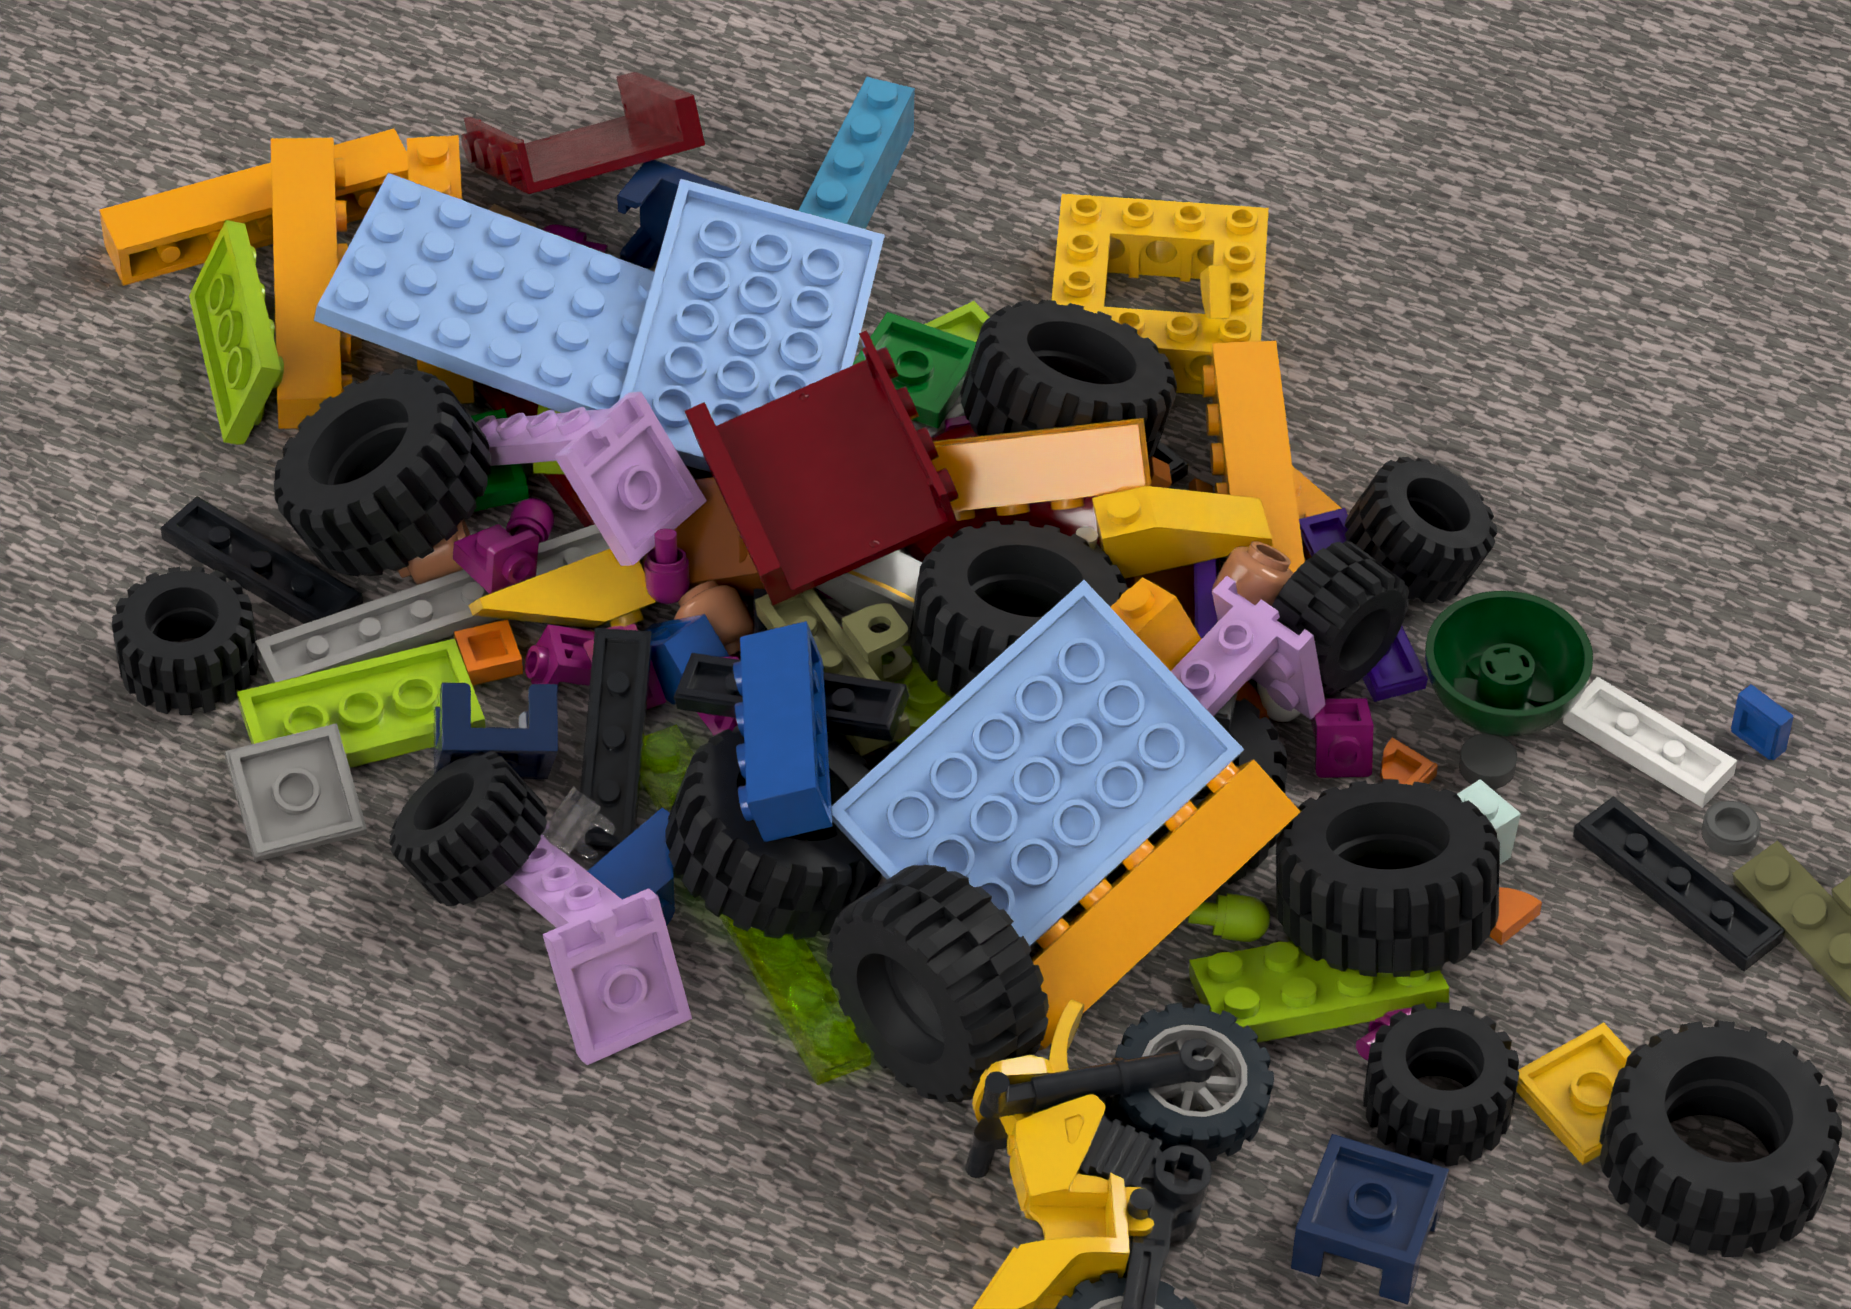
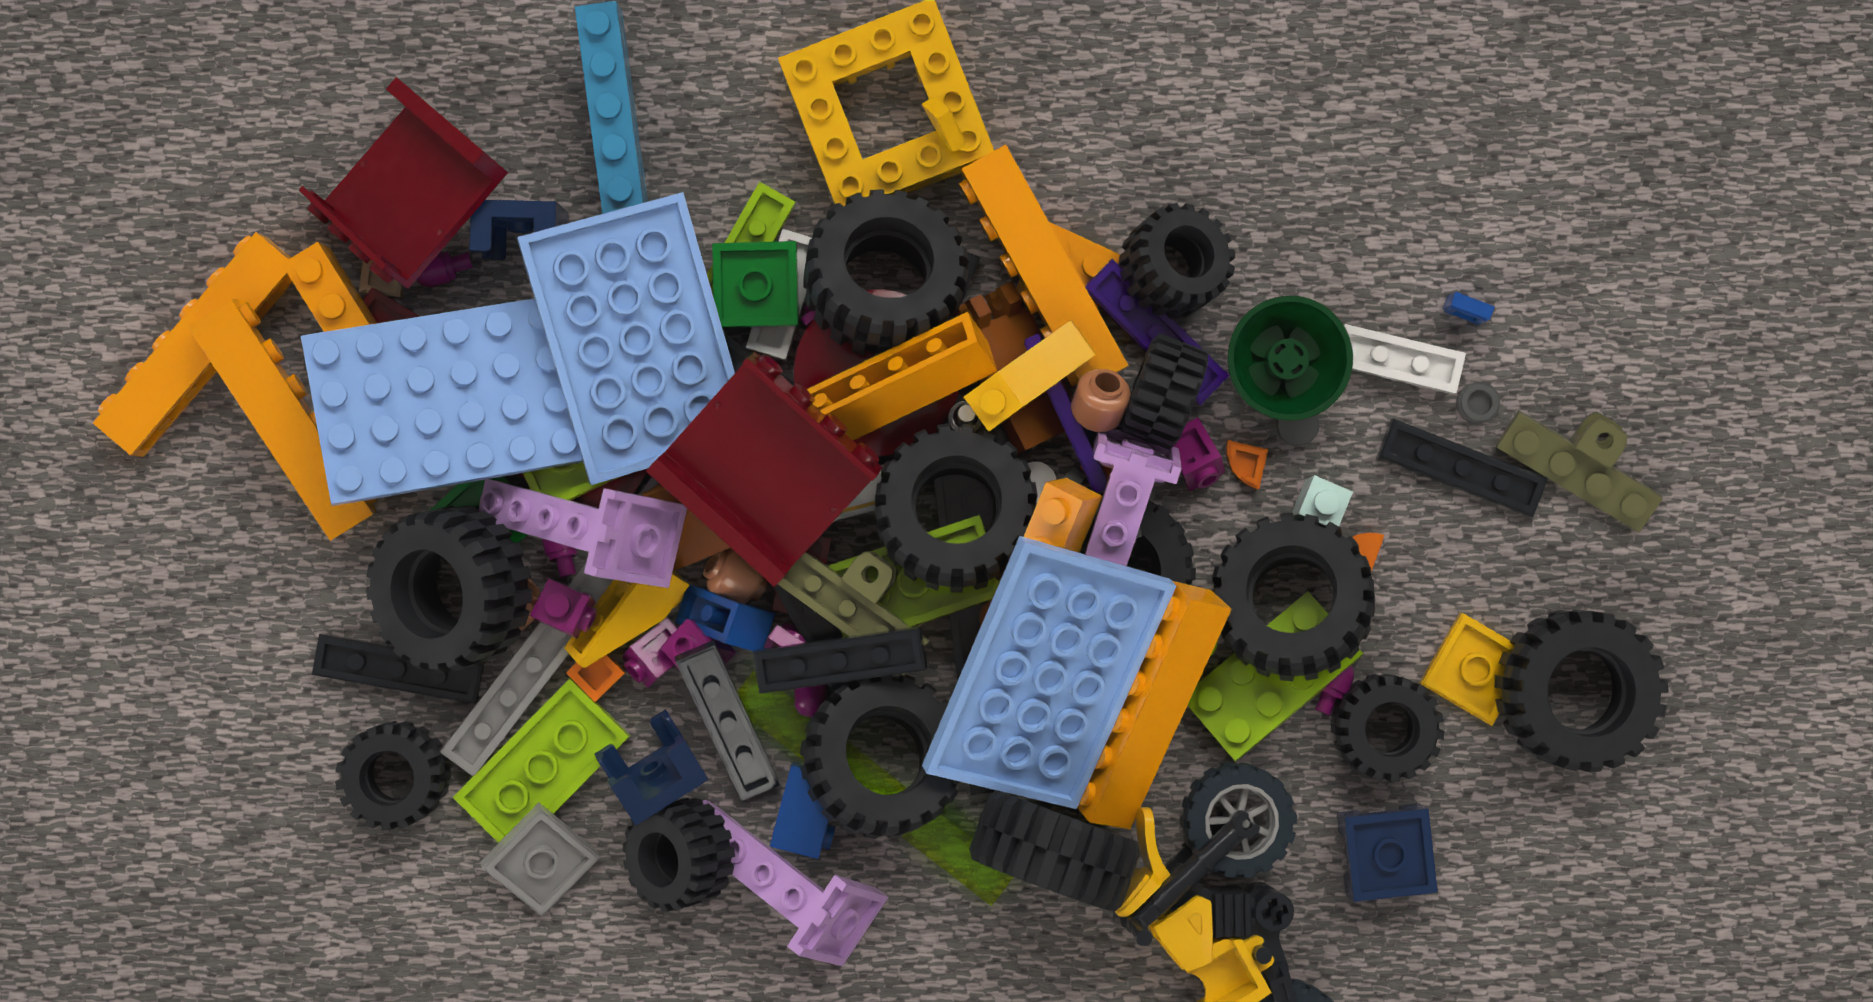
camera: 25 degrees left, 40 degrees up
(235, 333) = (271, 501): lime plate -> none
(573, 820) = (739, 802): clear tile -> none
(666, 569) = (686, 570): magenta cylinder -> none
(783, 732) = (866, 729): blue brick -> none

